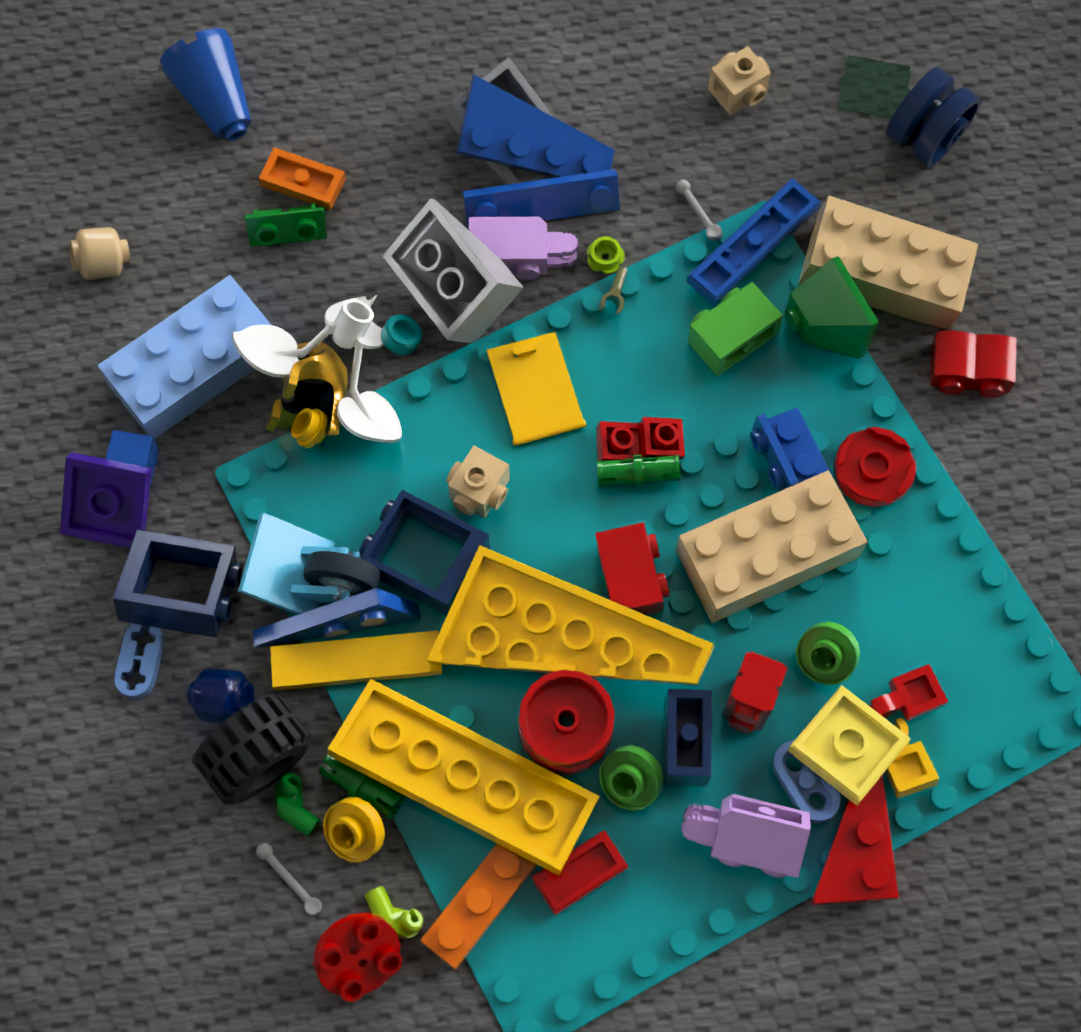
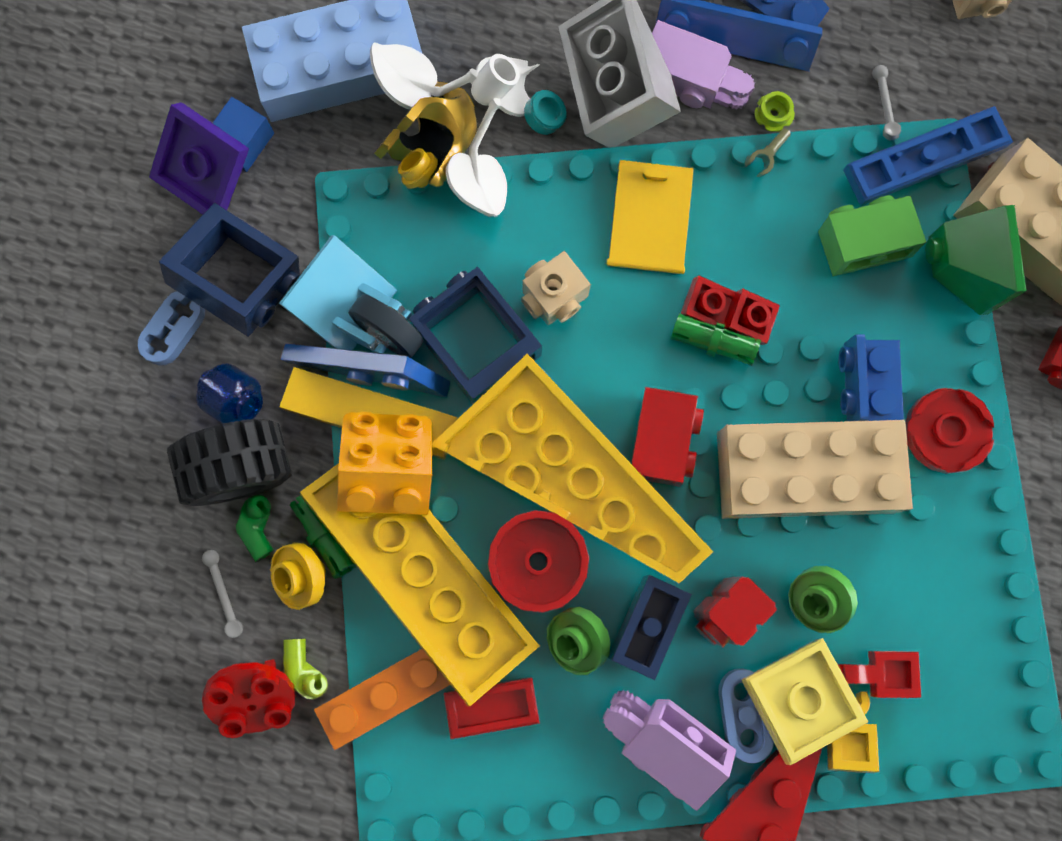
camera: 20 degrees right, 10 degrees up
(395, 692) = (385, 463): none -> light orange bracket

